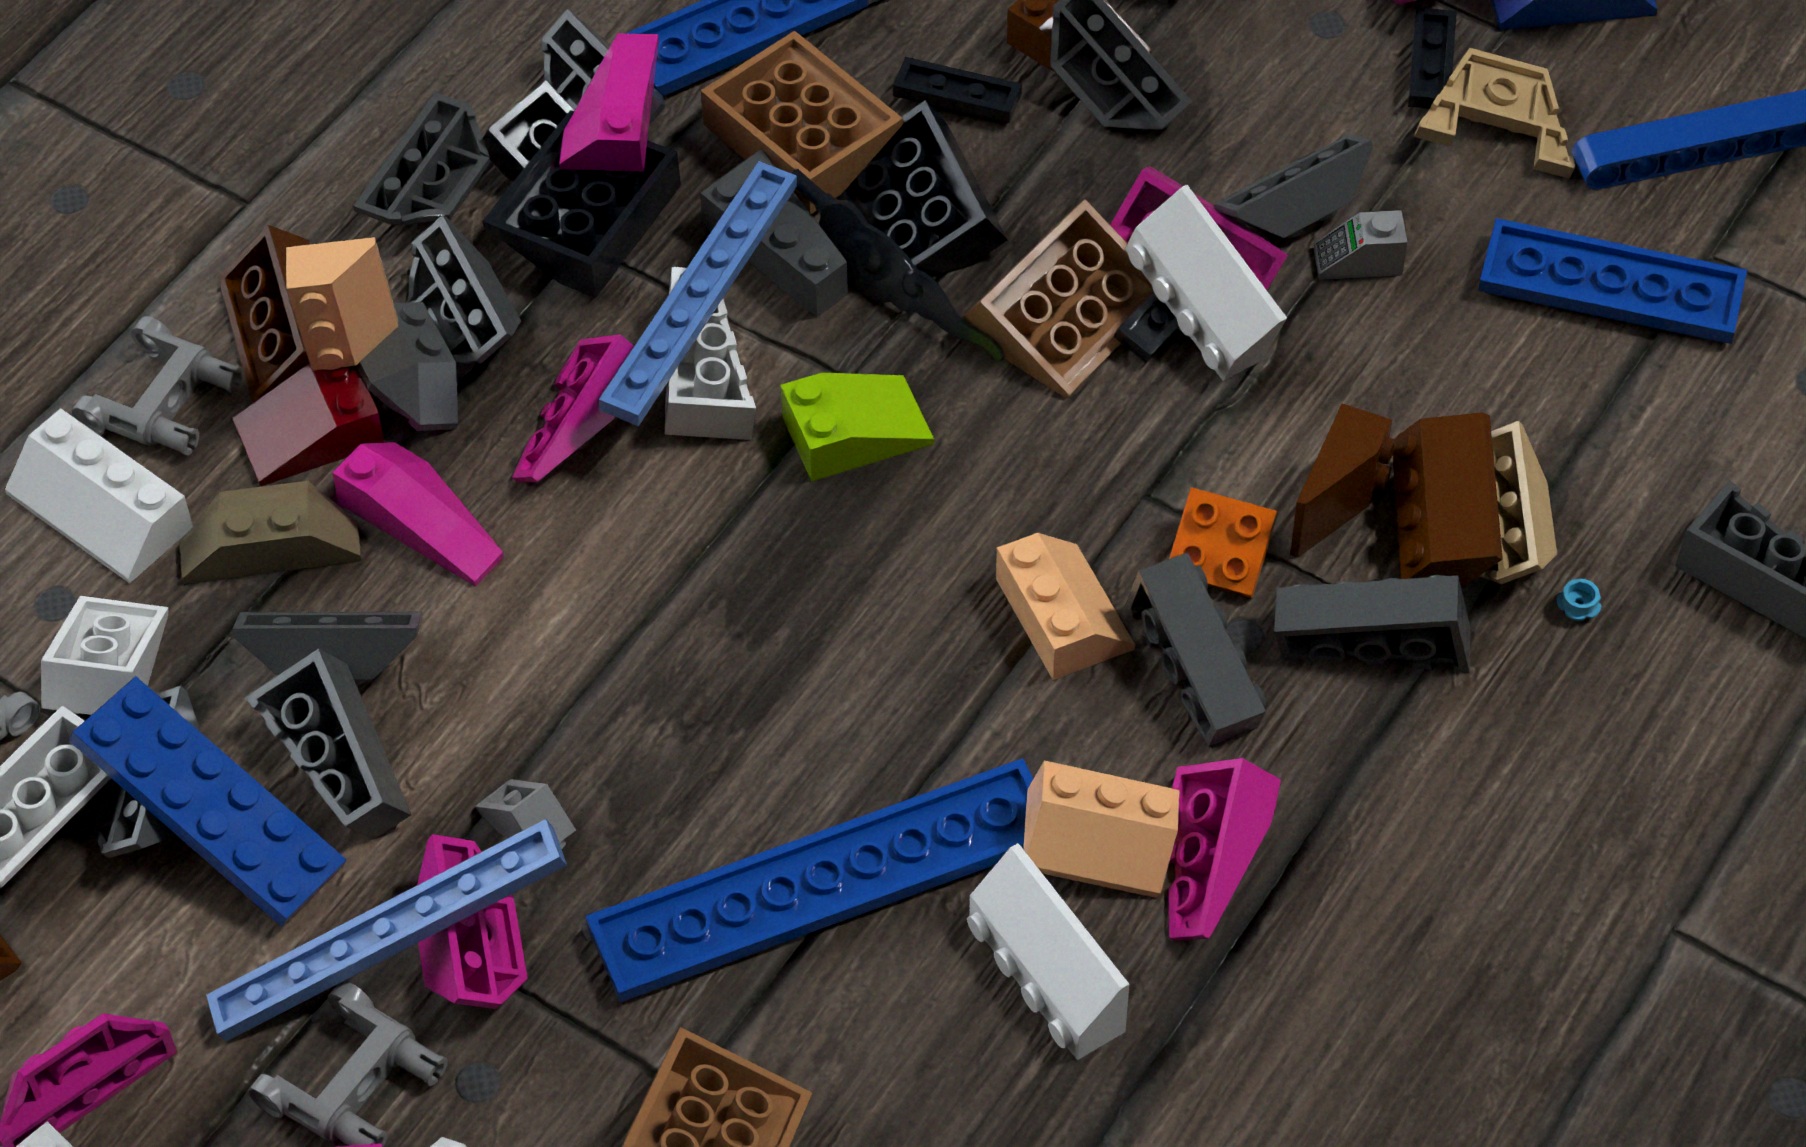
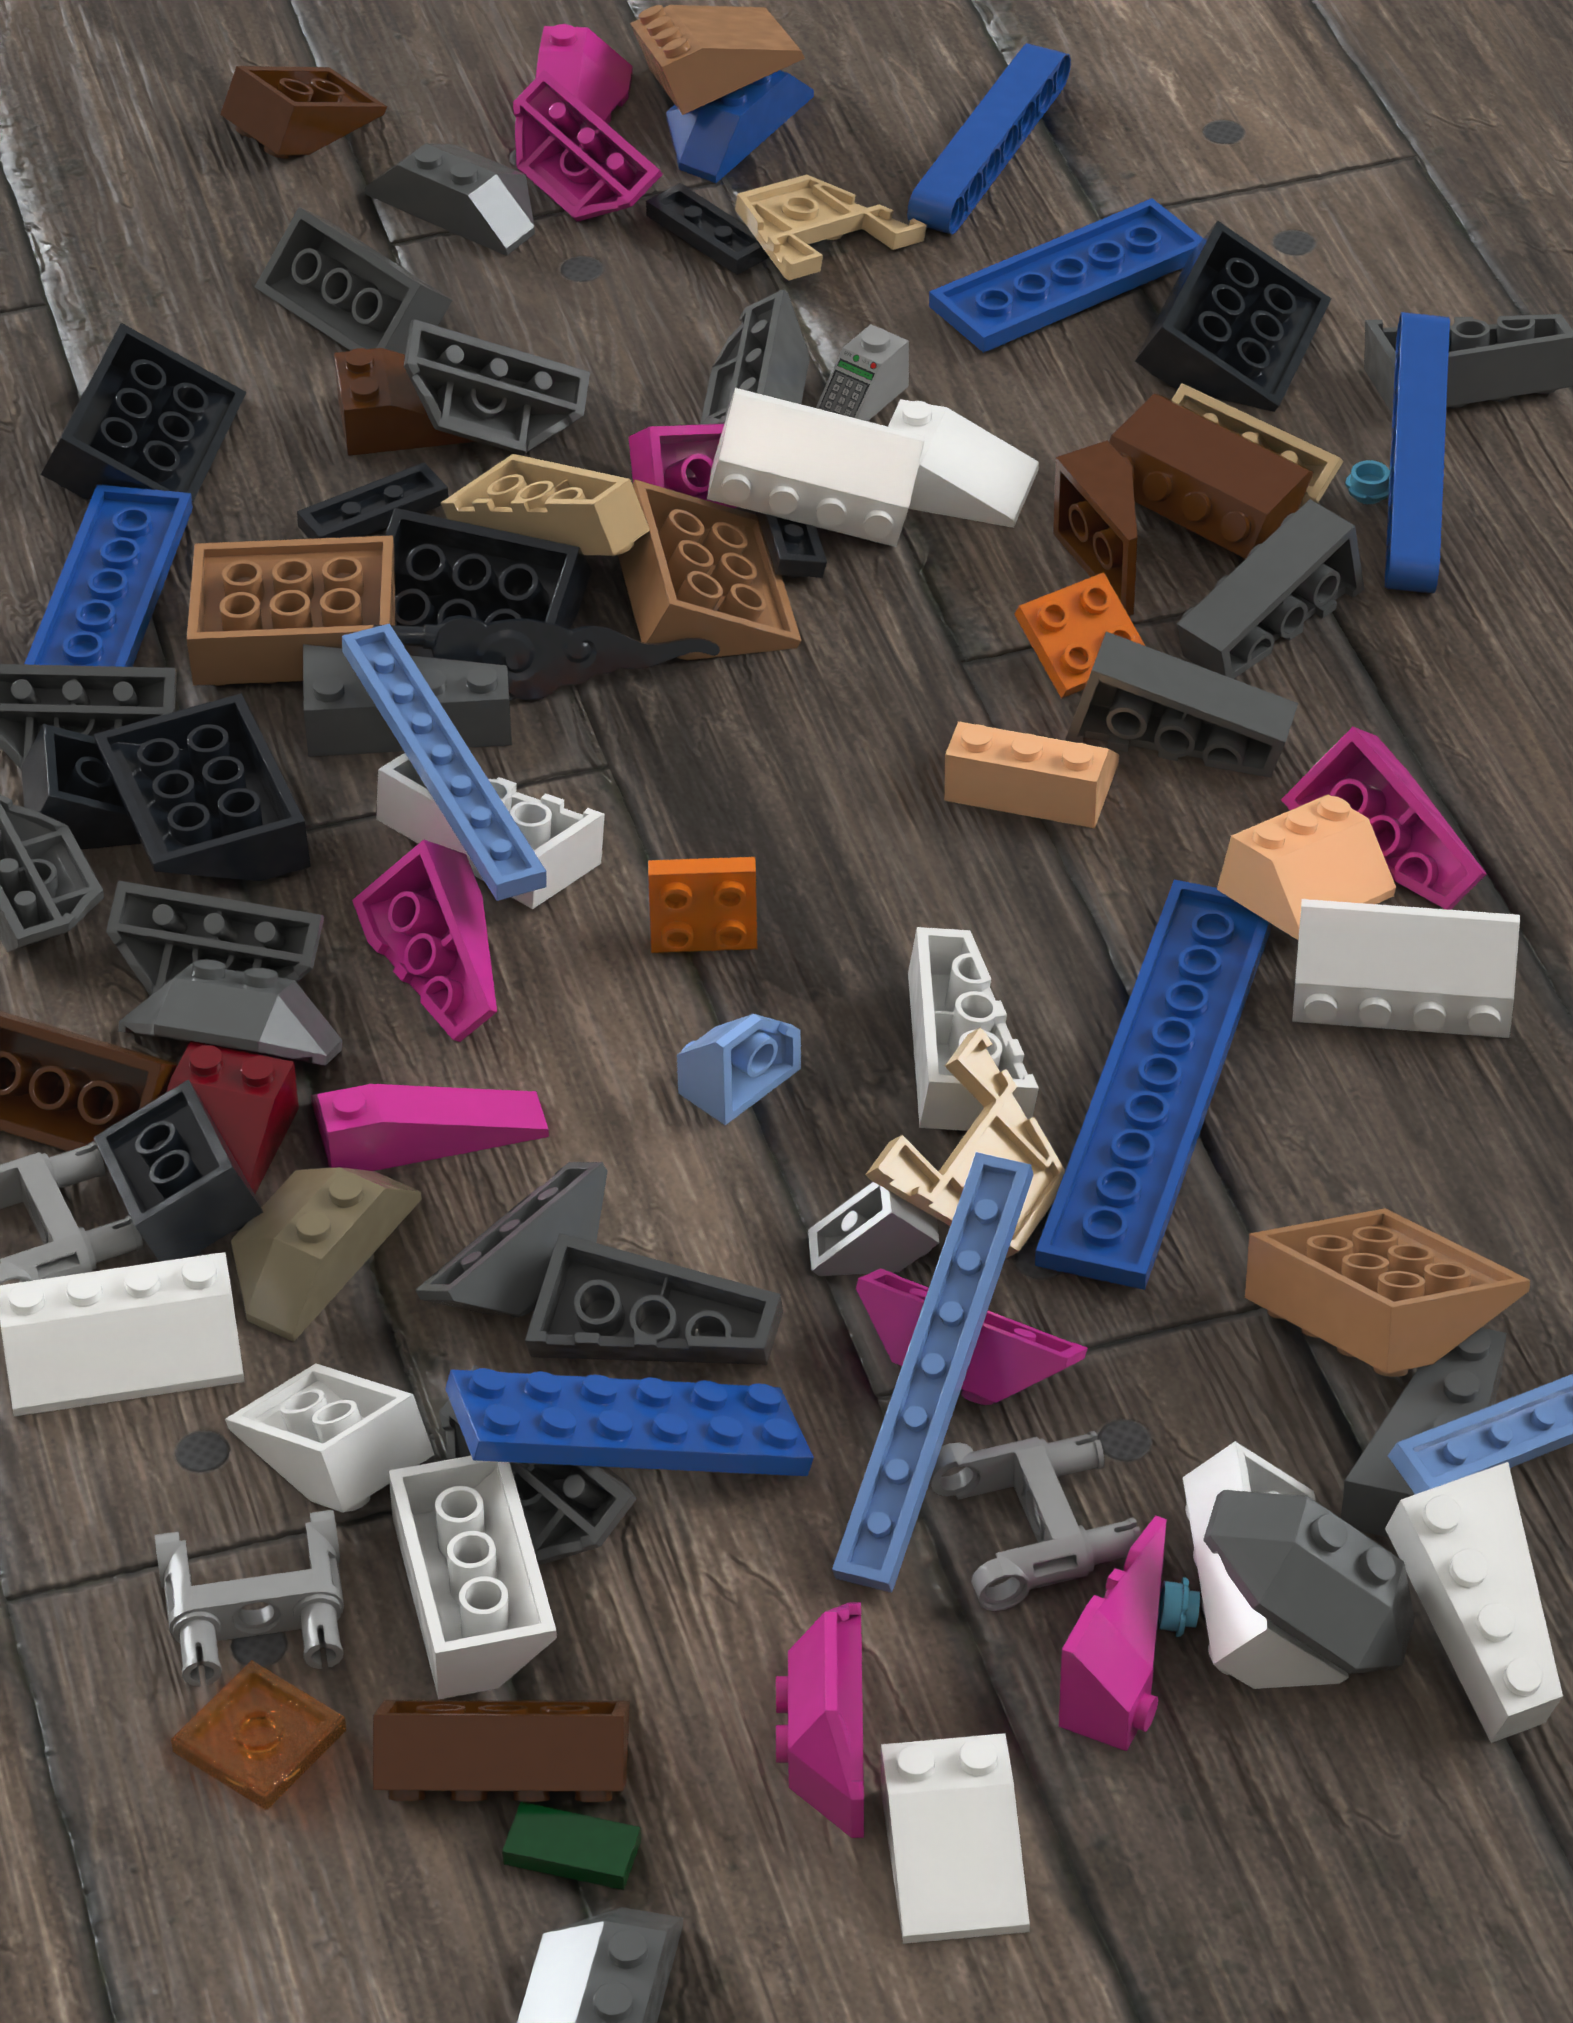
camera: 50 degrees left, 10 degrees down
(237, 427) = (177, 1175): none -> black slope
(339, 300) = (172, 977): light nougat slope -> none
(609, 640) = (738, 1064): none -> light blue slope
(614, 113) = (151, 693): dark pink wedge -> none
(627, 847) = (997, 1131): none -> tan wing
(727, 517) = (702, 904): none -> orange plate
(738, 743) = (947, 1003): none -> white wedge
(851, 420) = (668, 786): lime slope -> none
(1016, 174) = (553, 504): none -> tan wedge
(1328, 355) = (964, 467): none -> white slope
(1611, 605) = (1417, 453): none -> blue beam
(1662, 408) = (1234, 323): none -> black slope

